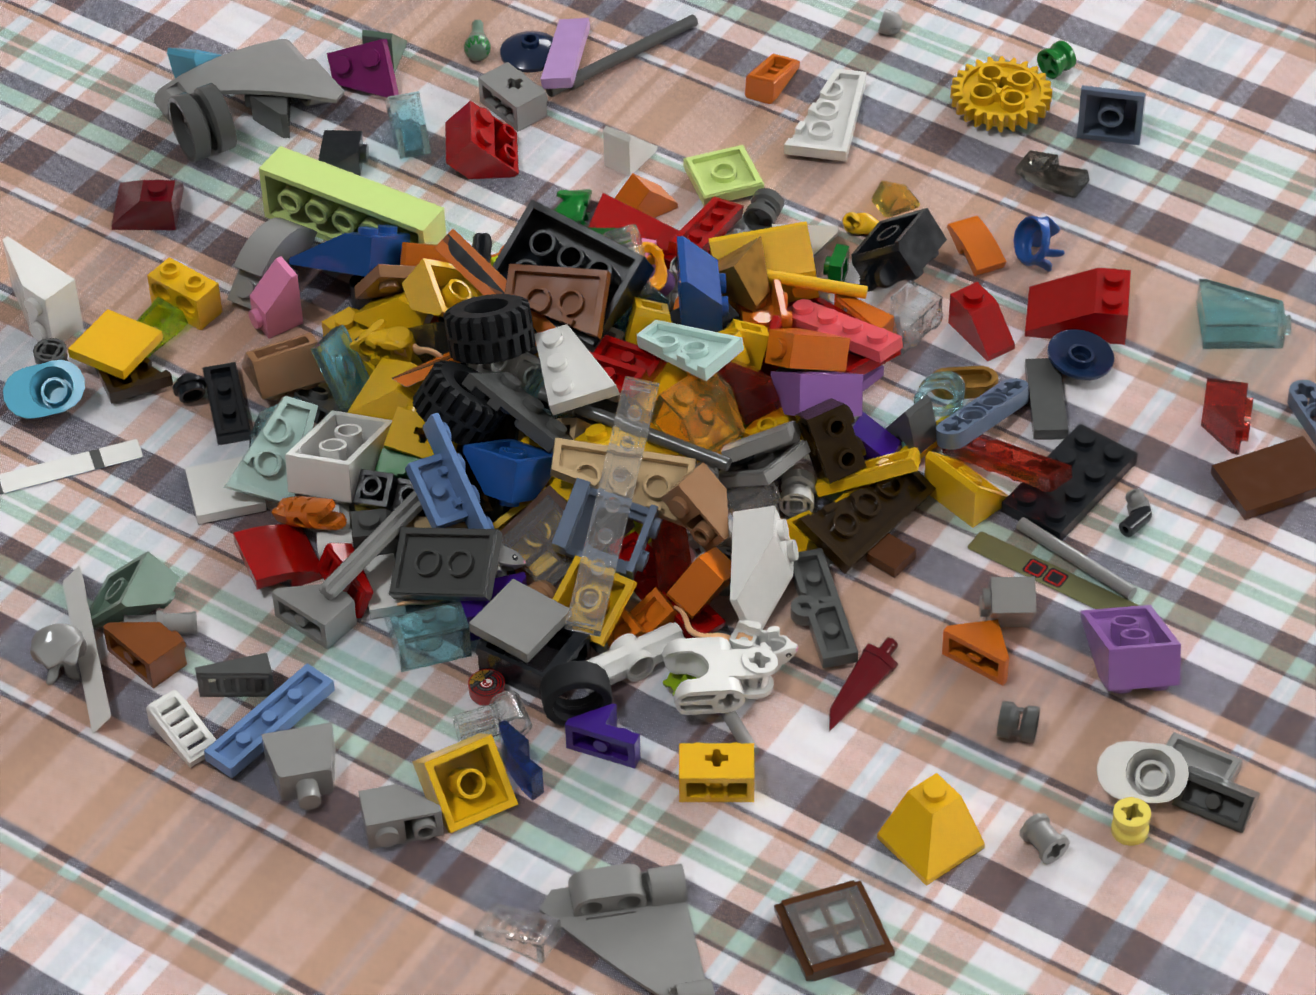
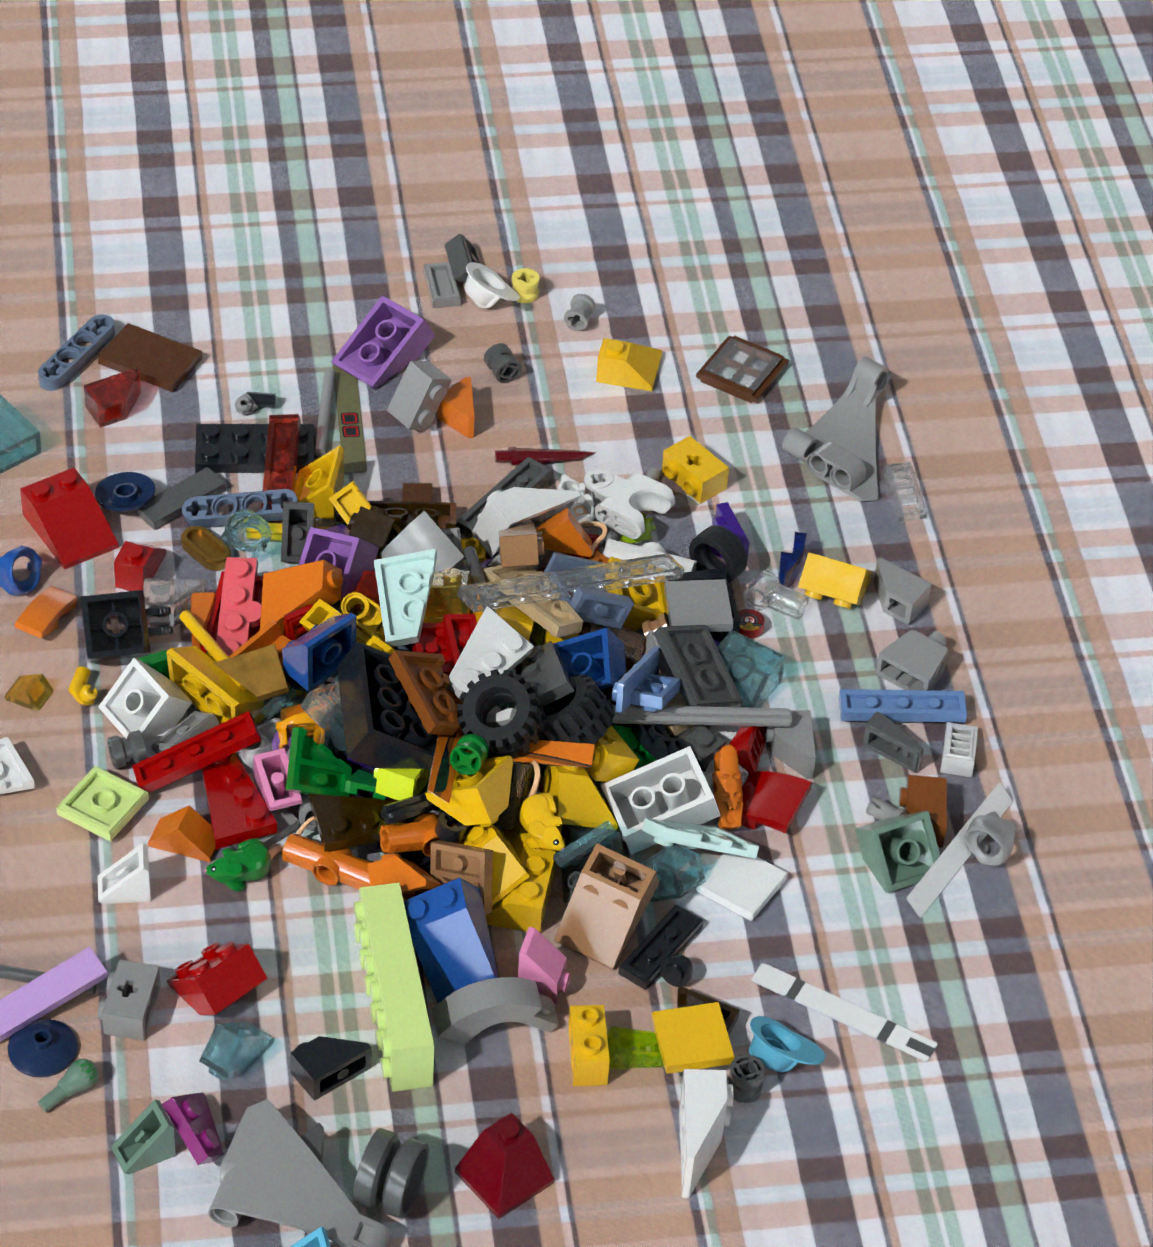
camera: 135 degrees left, 0 degrees up
(469, 284) = (465, 762): none -> green wheel

